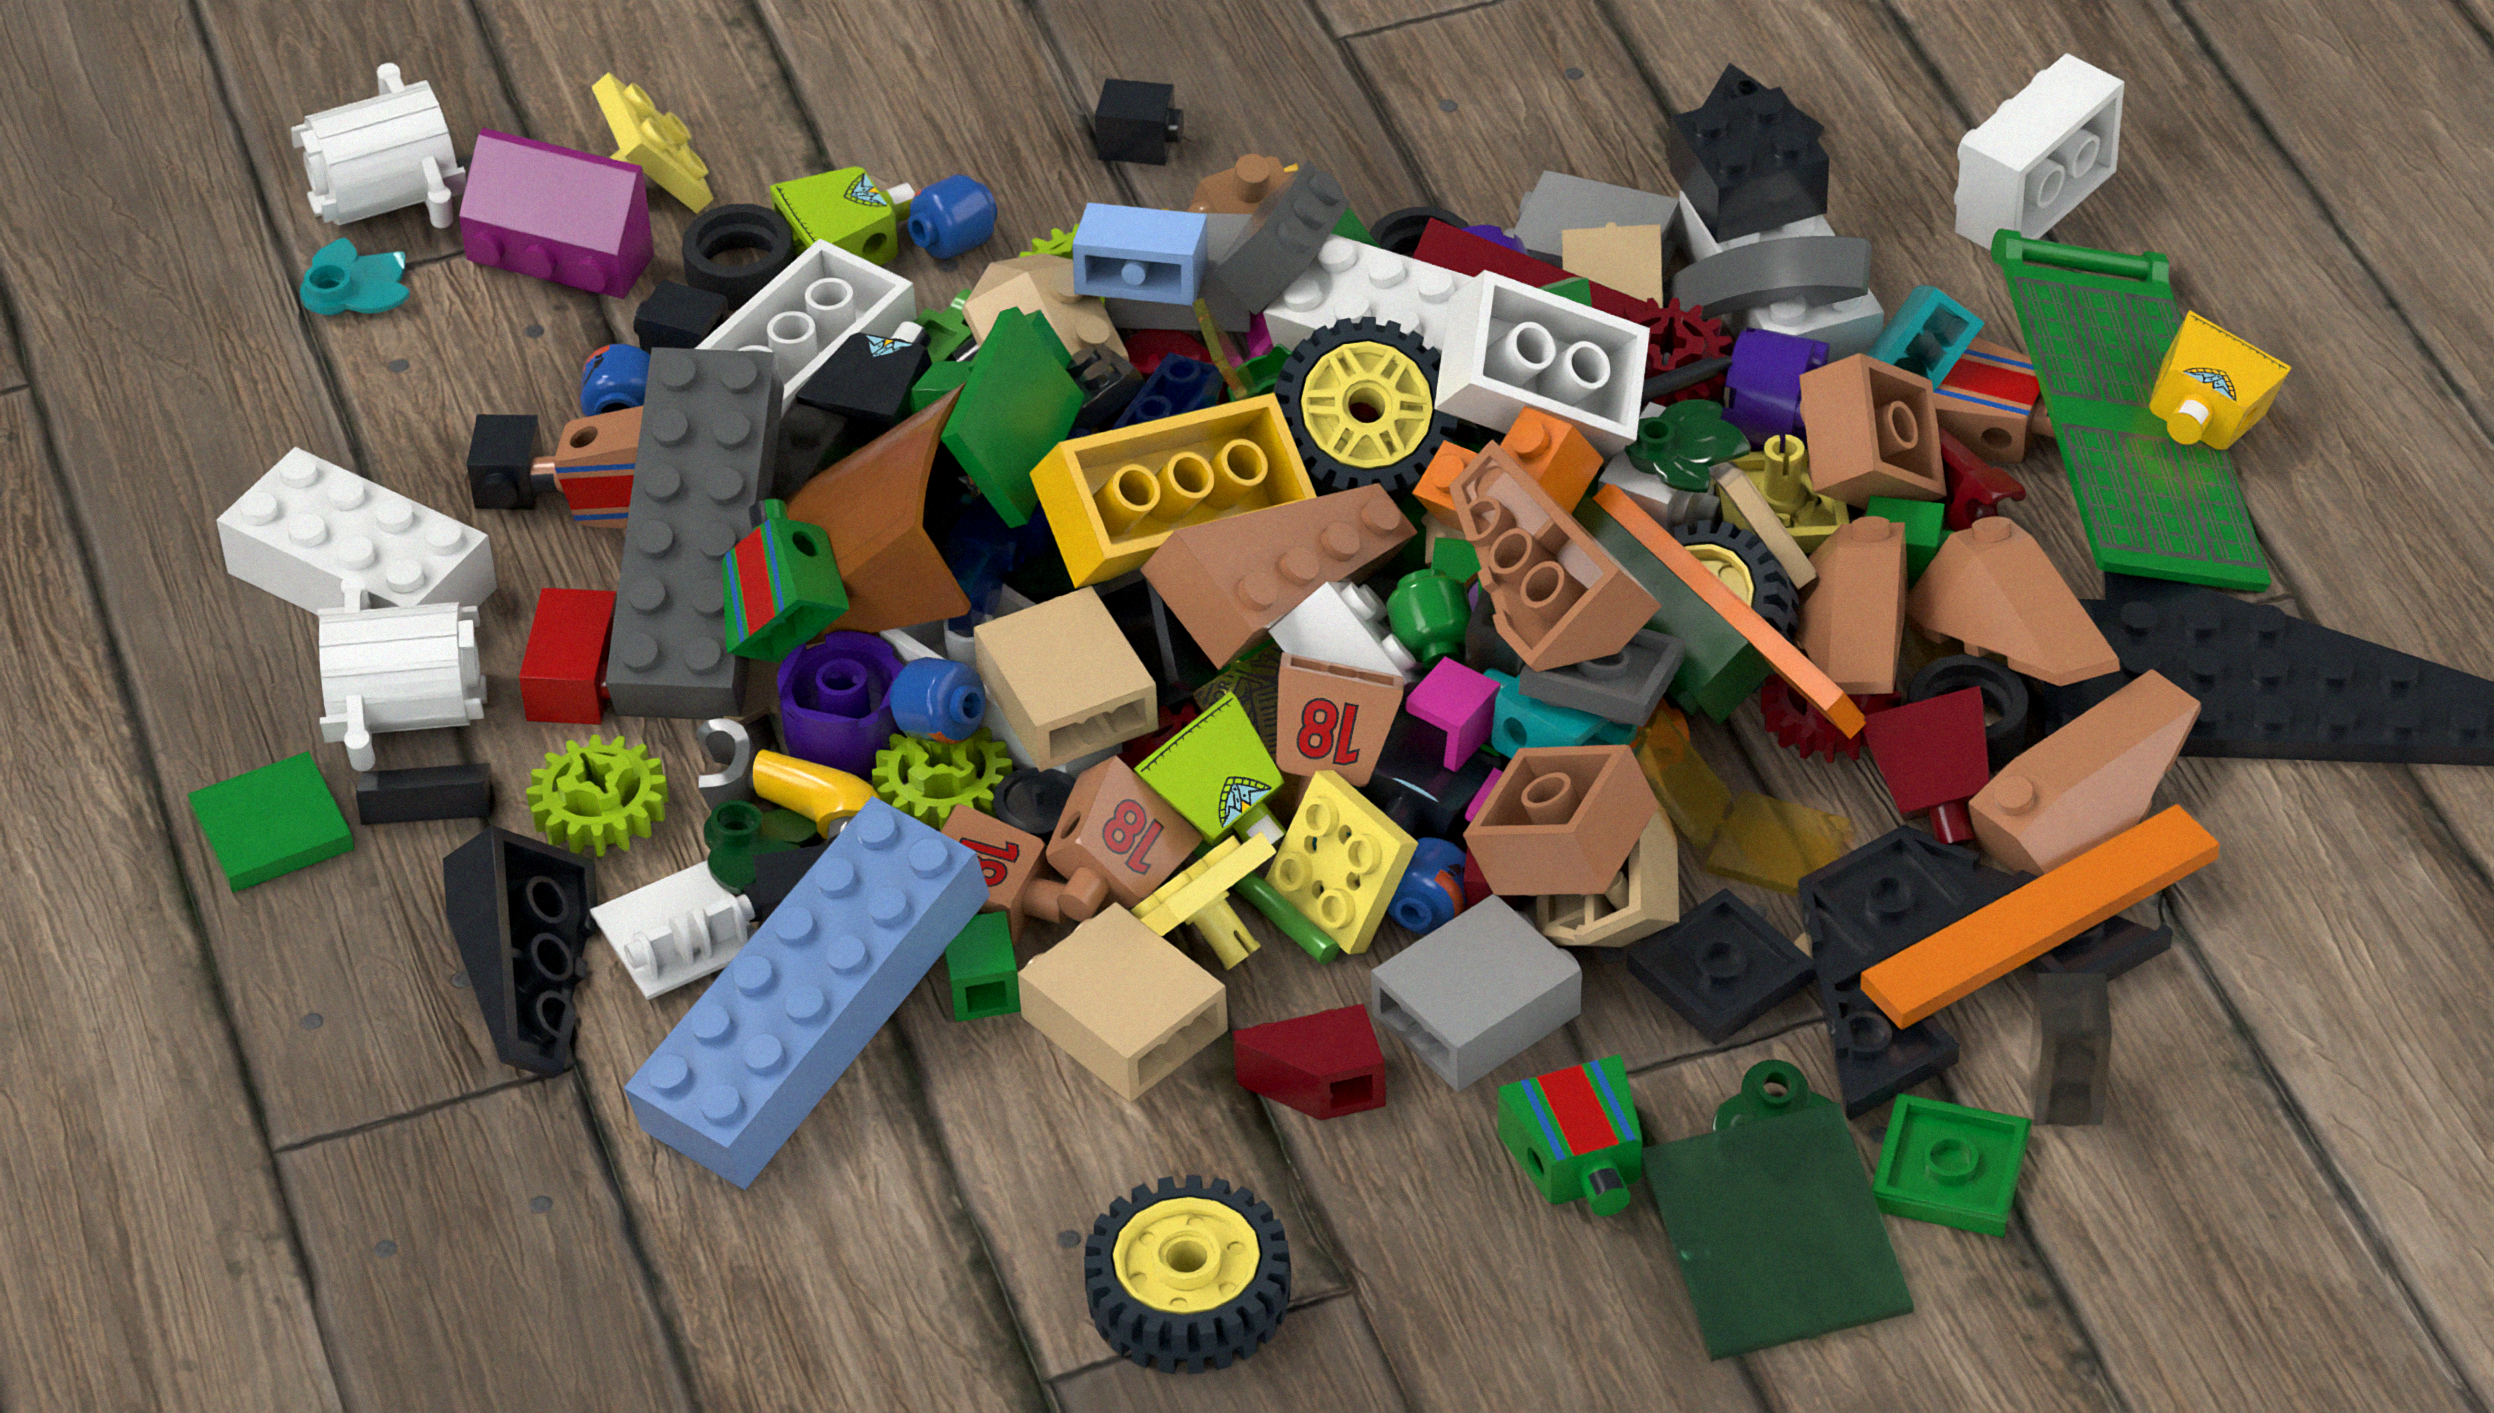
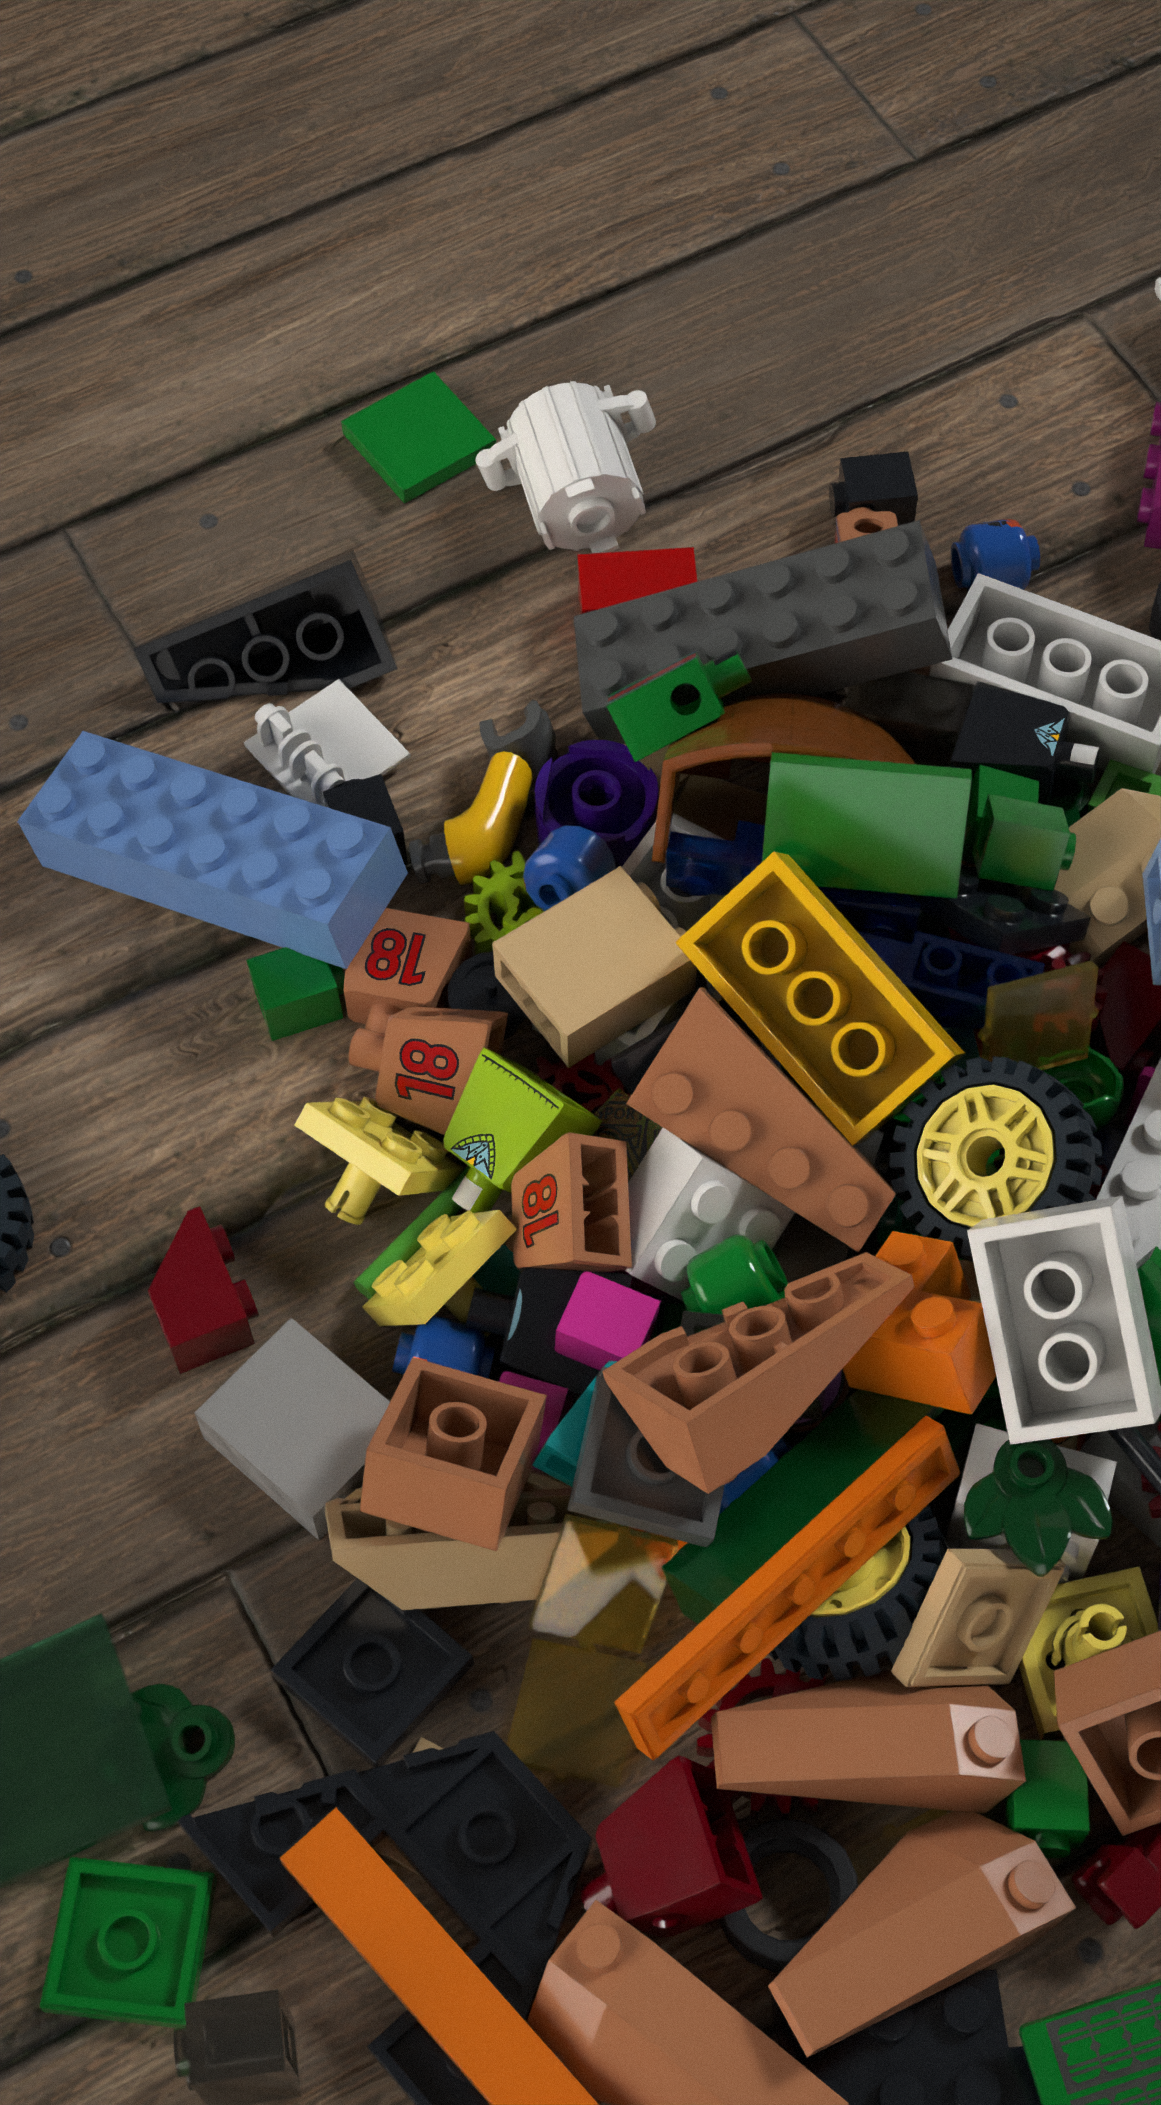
camera: 80 degrees right, 15 degrees up
(320, 523) = (729, 414): white brick -> none
(353, 282) = (1099, 338): teal plate -> none
(424, 793) = (470, 532): black slope -> none
(597, 795) = (468, 652): lime gear -> none
(678, 316) = (1094, 579): black brick -> none
(740, 831) = (423, 793): dark green plate -> none
(1122, 1001) = (244, 1108): tan brick -> none
(1575, 1133) = (120, 1552): green torso -> none

